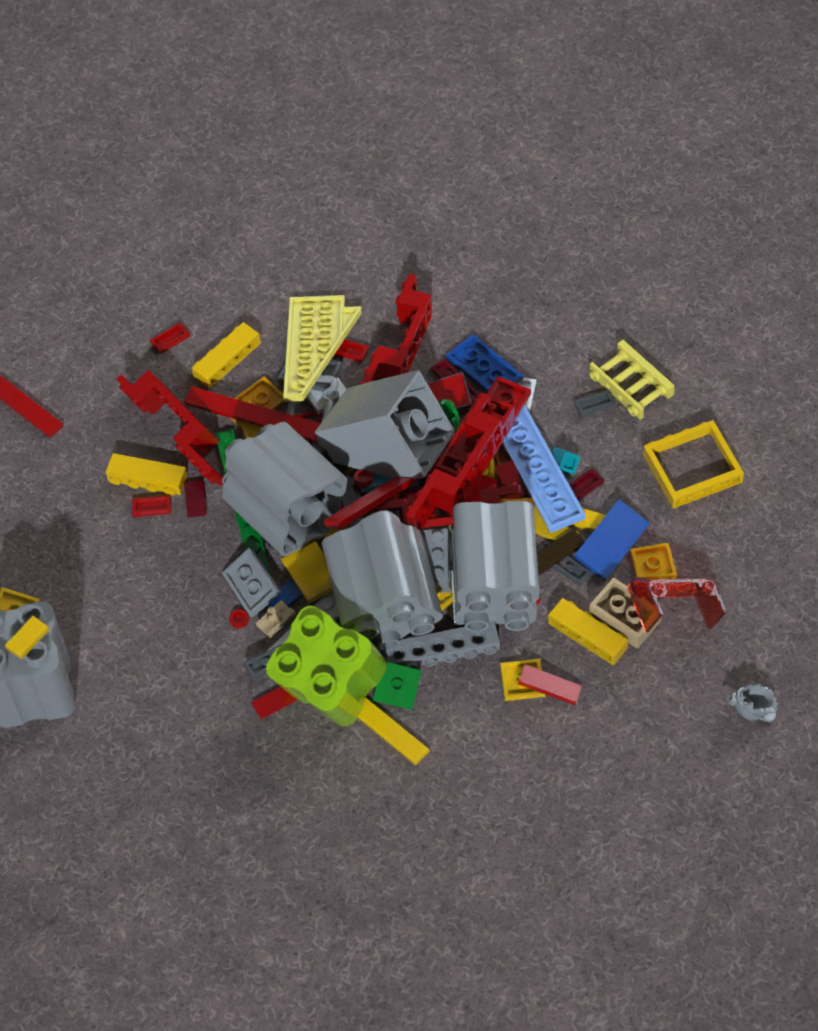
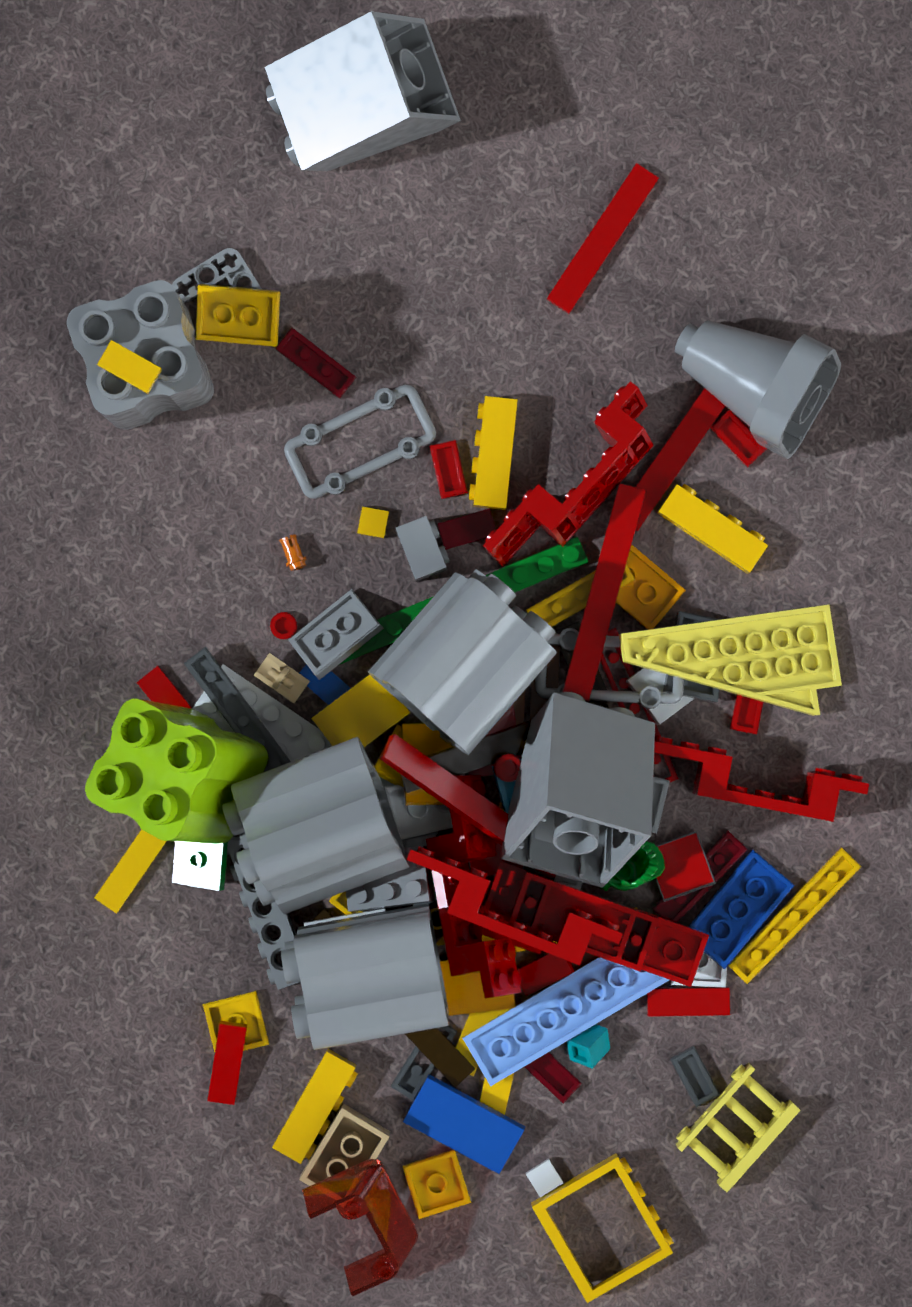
camera: 75 degrees right, 30 degrees up
(58, 579) = (315, 363): none -> dark red tile
(132, 308) = (762, 379): none -> light grey cone
(144, 574) = (384, 400): none -> light grey bar
(164, 368) = (677, 451): none -> red tile
(178, 555) = (373, 522): none -> yellow tile
(188, 606) = (293, 553): none -> orange pin
(202, 519) = (421, 548): none -> light grey brick
(492, 336) = (794, 915): none -> yellow tile
(543, 401) = (688, 1001): none -> red tile
(655, 497) = (544, 1177): none -> white tile

